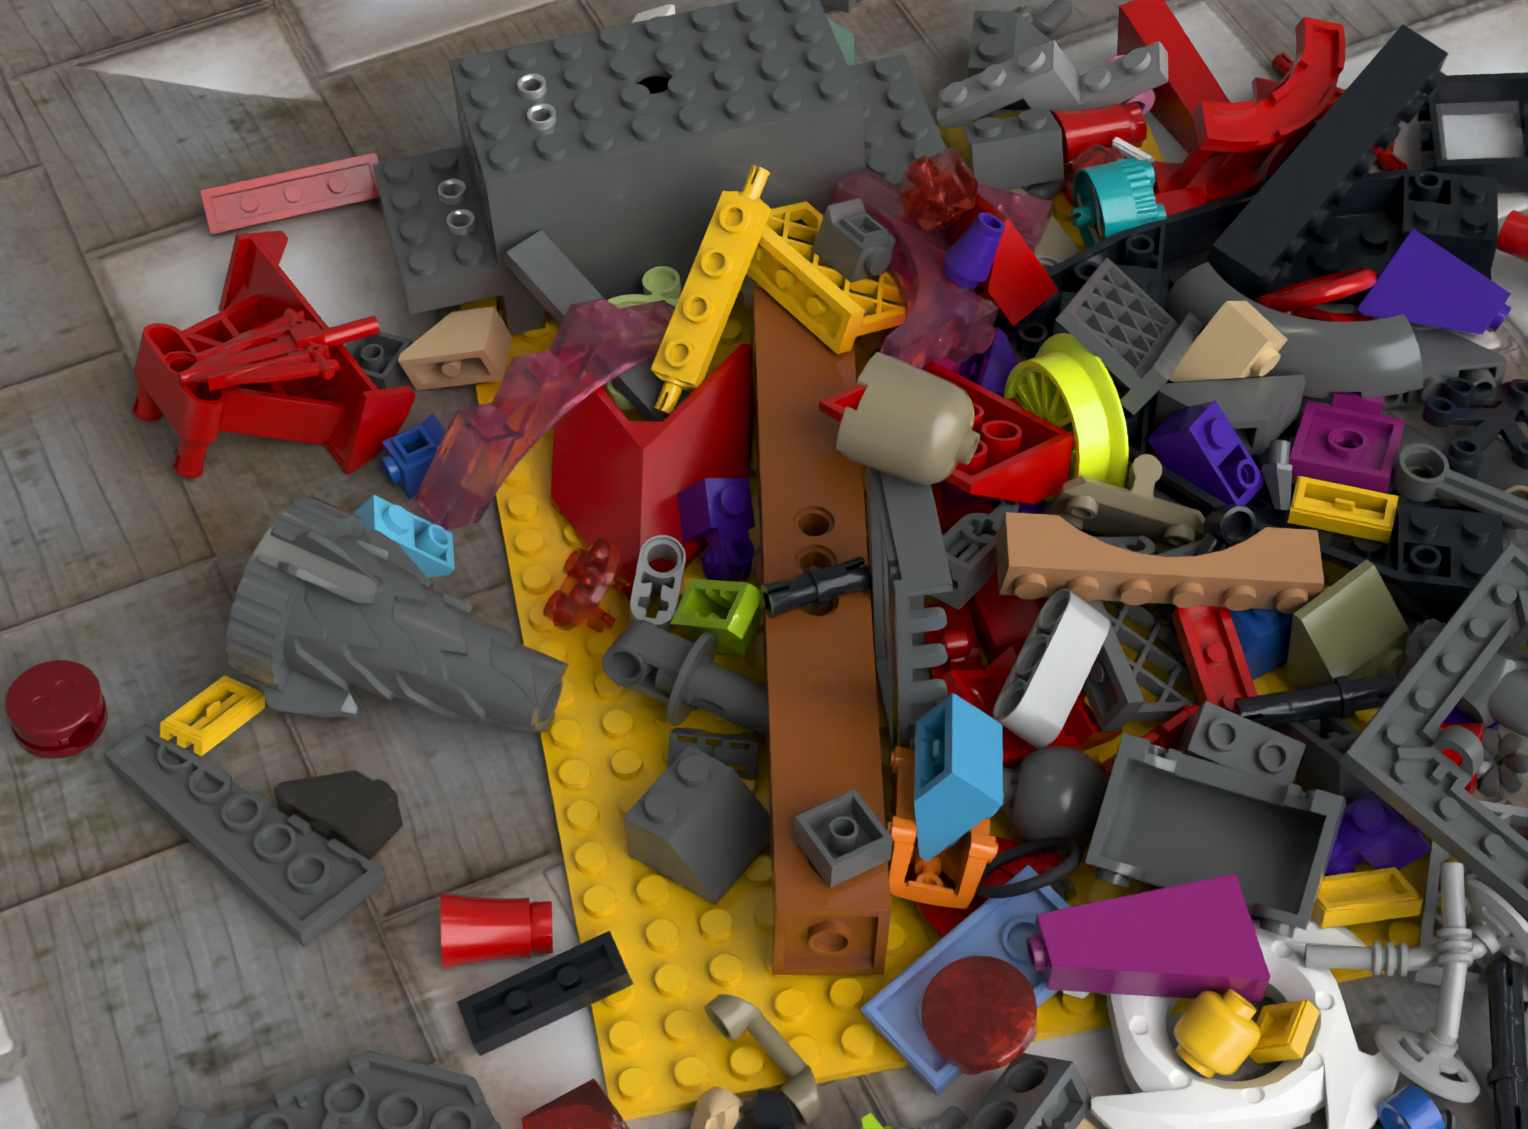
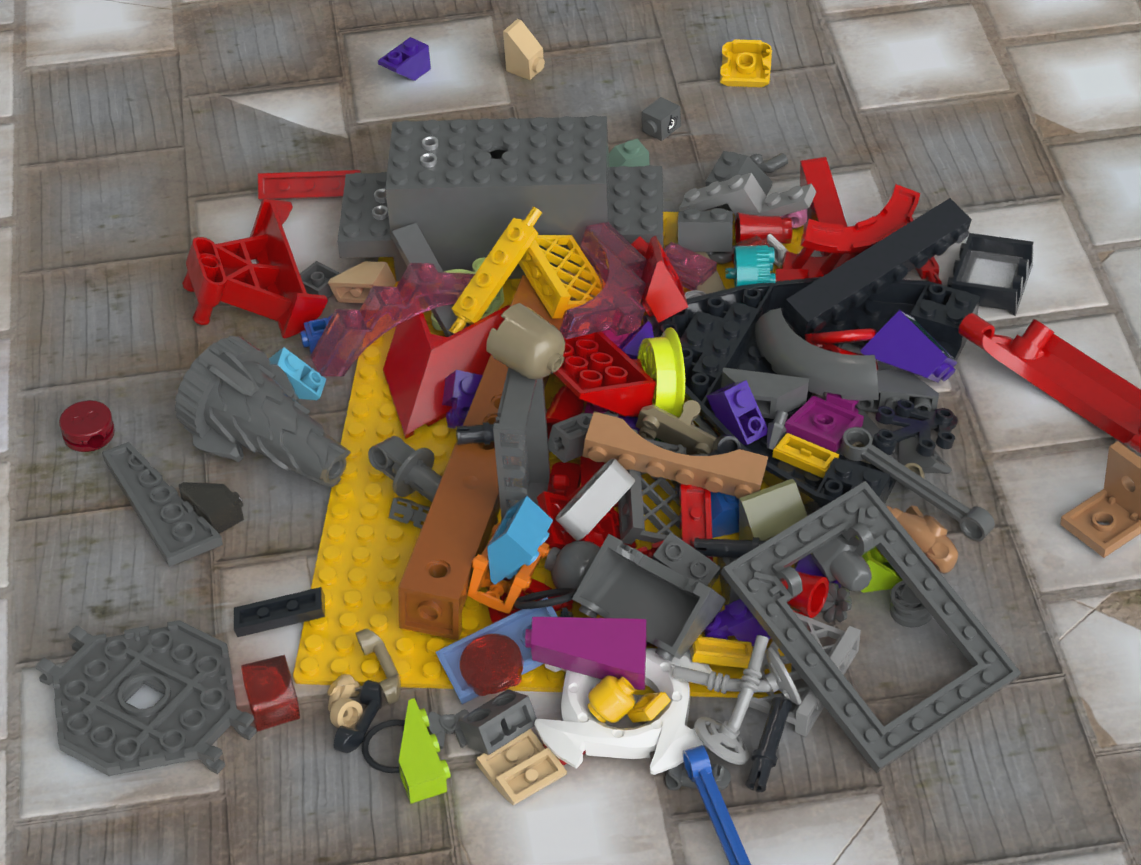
camera: 15 degrees right, 5 degrees down
(220, 718) = (164, 444): yellow tile -> none
(276, 352) = (259, 263): red bar -> none
(493, 929) = (264, 576): red plant -> none
(587, 579) = (382, 408): clear red plate -> none
(665, 585) = (421, 423): light grey piece -> none
(698, 825) = (384, 544): dark grey slope -> none
(723, 609) = (440, 440): lime arch -> none
(842, 838) = (444, 557): dark grey piece -> none
(853, 241) = (582, 259): dark grey window -> none
(938, 189) = (636, 239): clear red brick -> none
(974, 252) = (639, 276): dark purple cone -> none
(1128, 332) = (722, 352): dark grey fence -> none
(1232, 346) = (772, 354): tan slope -> none

